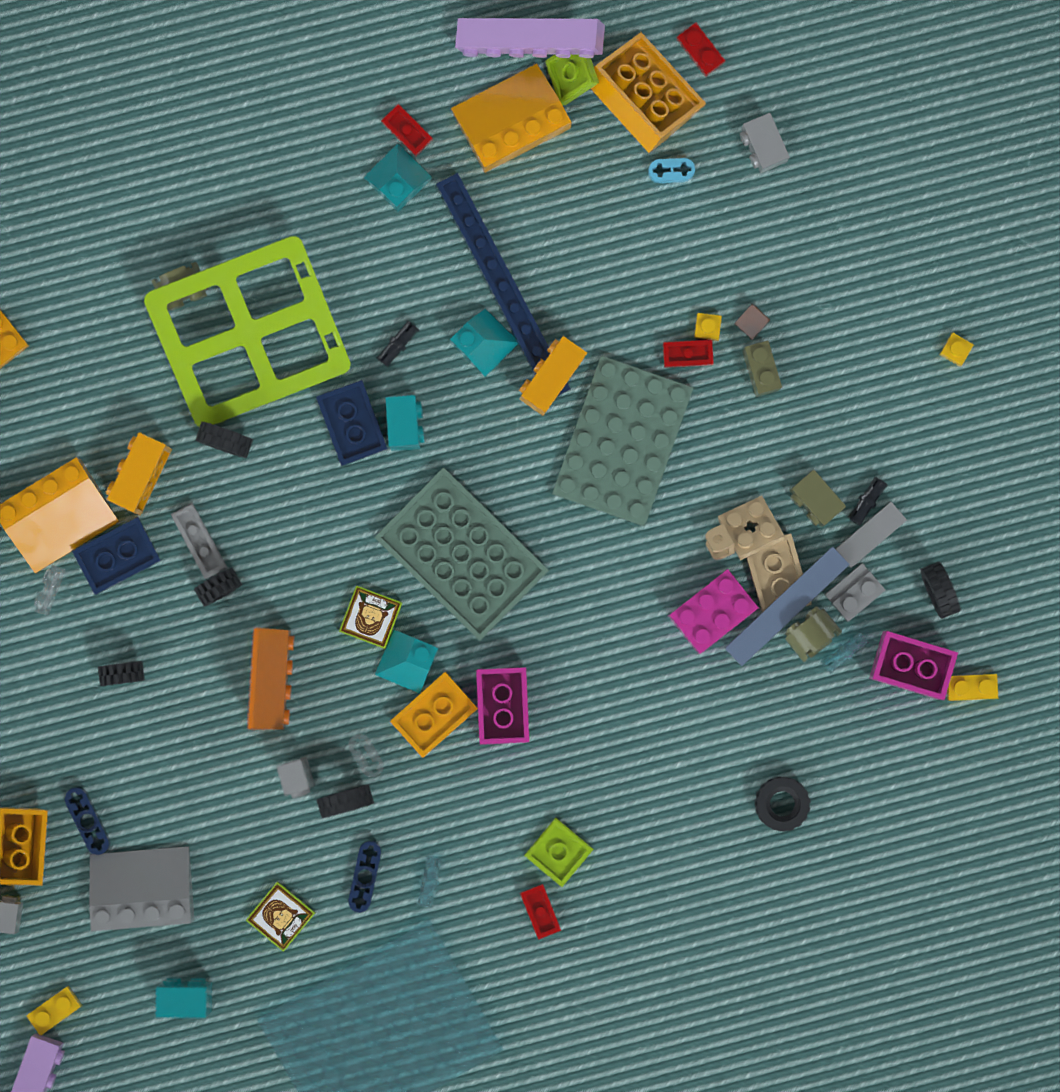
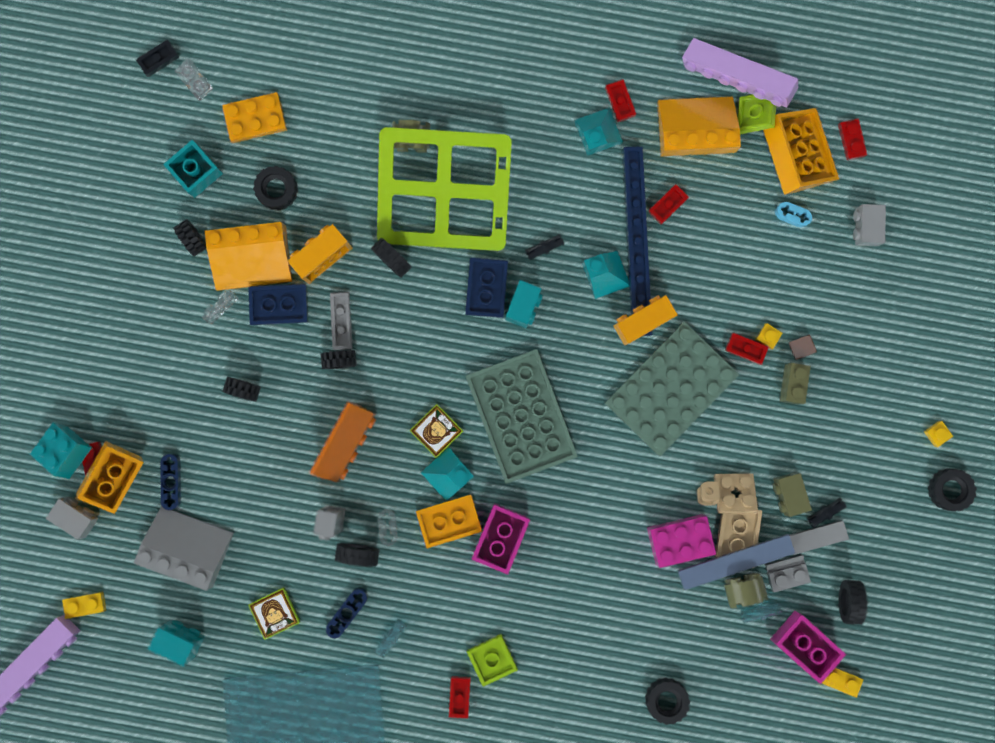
camera: 25 degrees right, 0 degrees up
(35, 407) = (265, 177): none -> black tyre
(519, 226) = (668, 204): none -> red plate
(1006, 389) = (967, 485): none -> black tyre

